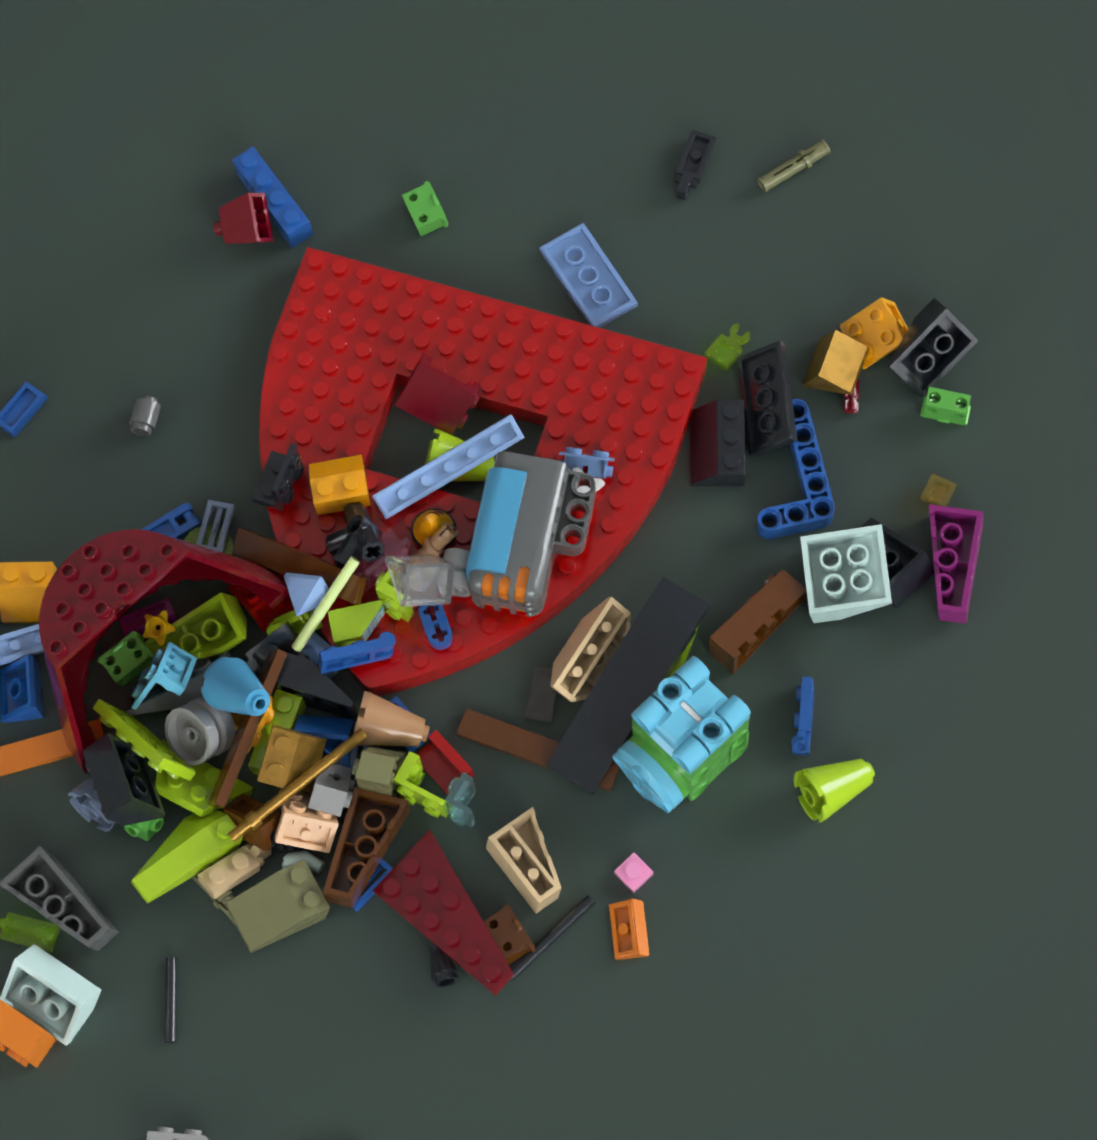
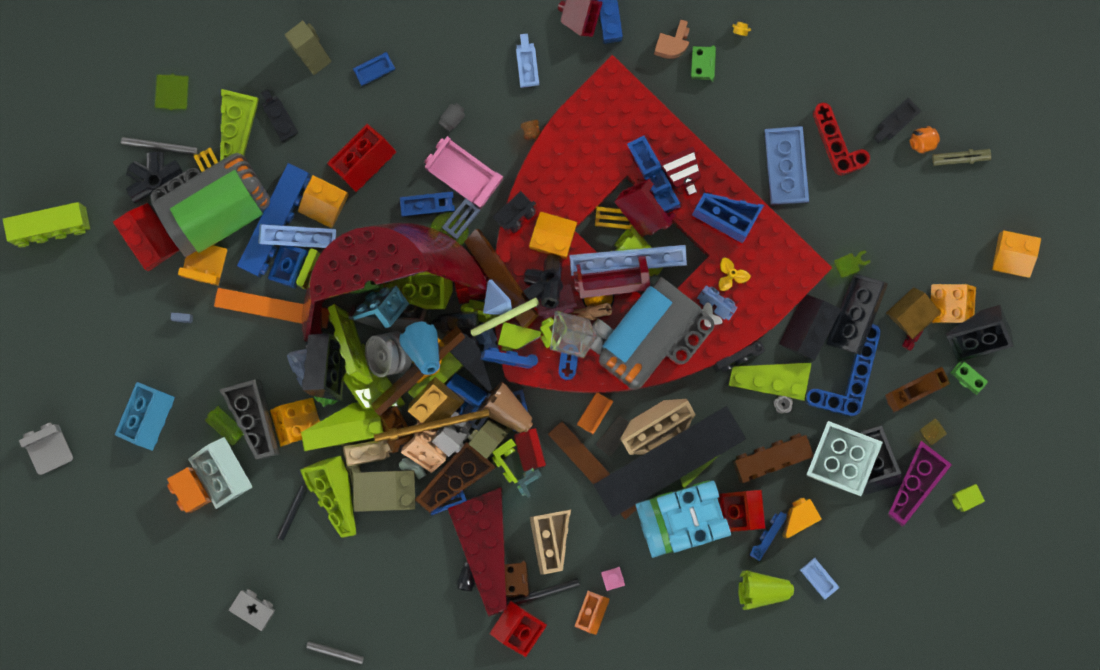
camera: 20 degrees right, 15 degrees up
(43, 684) = (306, 271): none -> lime tile
(54, 516) = (362, 157): none -> red slope
(110, 879) = (293, 419): none -> light orange bracket
(189, 474) = (463, 172): none -> bright pink panel
(208, 311) = (527, 63): none -> light blue hinge
(208, 940) = (332, 487): none -> lime wedge
(250, 383) = (531, 129): none -> clear orange wheel
(377, 208) = (673, 47): none -> nougat brick
(401, 429) = (607, 217): none -> yellow tile
(414, 342) = (652, 169): none -> blue slope
(442, 495) = (612, 281): none -> dark red panel
(450, 150) = (741, 28): none -> yellow plate
(460, 330) = (682, 170): none -> torso
(504, 679) = (595, 413): none -> orange panel
(543, 353) = (727, 215): none -> blue wedge
(543, 997) = (518, 629): none -> red slope
(582, 417) = (728, 268): none -> yellow plant
(632, 215) = (836, 138): none -> red beam
(650, 519) = (741, 356): none -> black hinge
(708, 528) = (777, 379): none -> lime wing
(735, 544) = (778, 404): none -> light grey plate
(738, 166) = (924, 139): none -> orange head
(762, 697) = (743, 510): none -> red slope
(831, 669) = (800, 517): none -> light orange slope
(891, 449) = (917, 389): none -> reddish brown arch
(897, 739) = (819, 578): none -> light blue tile
(920, 239) = (1016, 253): none -> light orange slope
(1026, 547) = (967, 498): none -> lime brick

